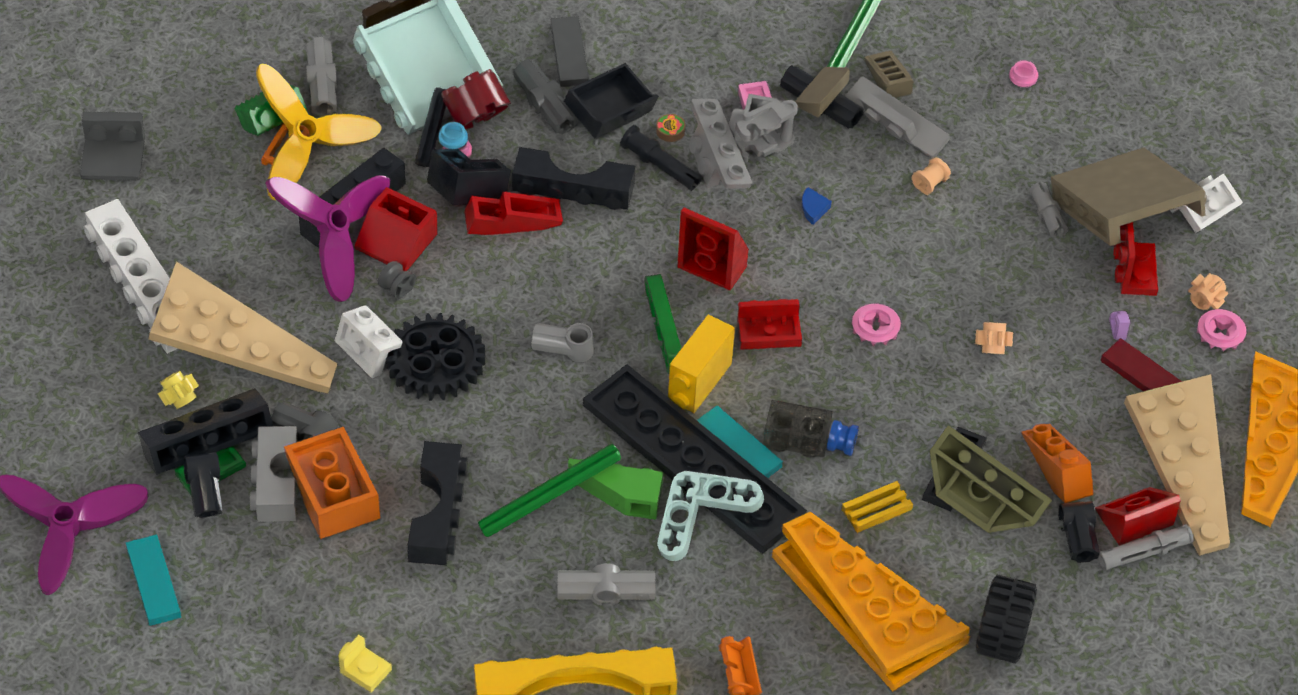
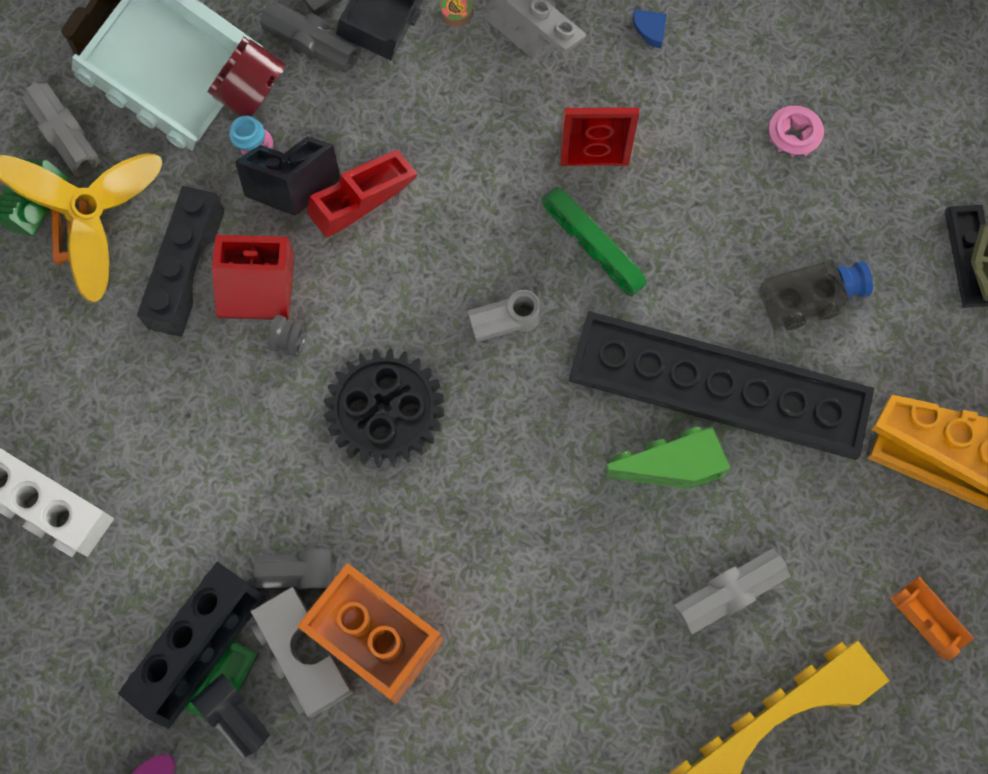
camera: 25 degrees left, 20 degrees up
(178, 389) = (130, 605): light yellow gear -> none
(219, 327) = (129, 506): tan wing -> none
(335, 243) = (198, 330): magenta piece -> none
(366, 339) = (301, 427): white bracket -> none
(431, 128) = (215, 133): black axle -> none
(431, 534) = (477, 547): black arch -> none
(549, 490) = (610, 514): green axle -> none
(606, 186) = (361, 132): black arch -> none
(650, 151) = (454, 47): black pin -> none
(698, 497) = (765, 432): light aqua beam -> none
(701, 363) = (670, 274): yellow brick -> none
(741, 441) = (752, 339): teal tile -> none
(769, 324) = (698, 188): red bracket -> none
(892, 488) = (944, 317): yellow tile -> none
(994, 338) = (921, 89): light nougat gear -> none

